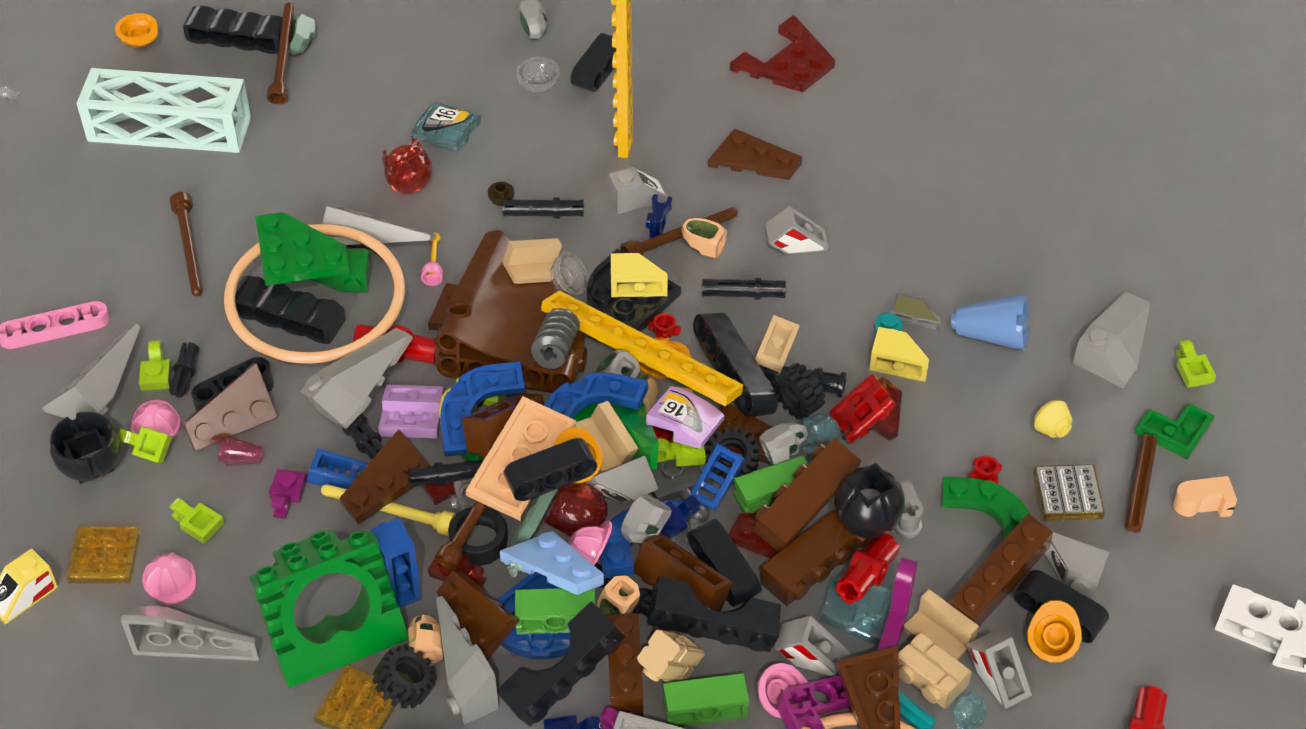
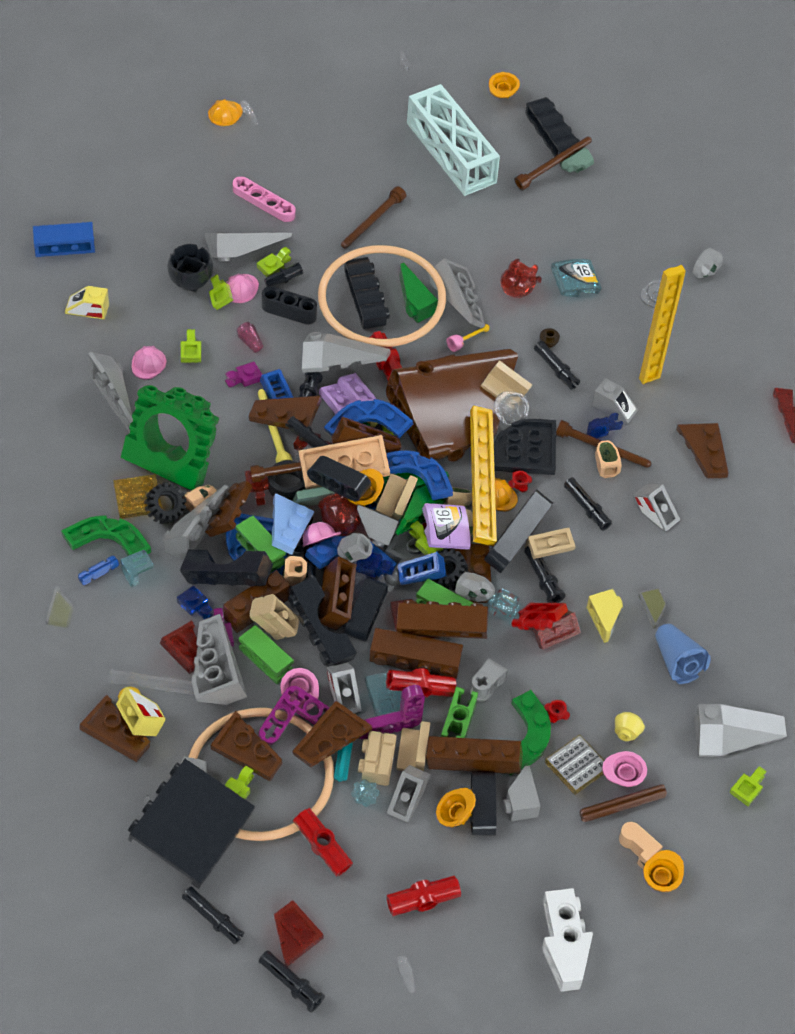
camera: 50 degrees right, 5 degrees up
(103, 555) = (138, 324): clear yellow tile -> none
(232, 411) = (273, 315): wing -> none
(297, 251) = (398, 266): green plate -> none
(399, 561) = (225, 450): blue brick -> none
(555, 338) = (446, 426): dark grey piece -> none
(595, 64) = (704, 319): black beam -> none
(619, 363) = (460, 475): light grey rock -> none
(636, 276) = (534, 438): light yellow slope -> none
(799, 391) = (524, 575): black tyre -> none
(872, 516) = (456, 662): black piece -> none
(889, 321) = (629, 597): teal plate -> none
(935, 551) = (460, 711): none -> bright green piece
(1109, 451) = (625, 769): none -> bright pink piece
(1179, 435) = (686, 809): green tile -> none
(1257, 494) = (664, 871): none -> light orange piece

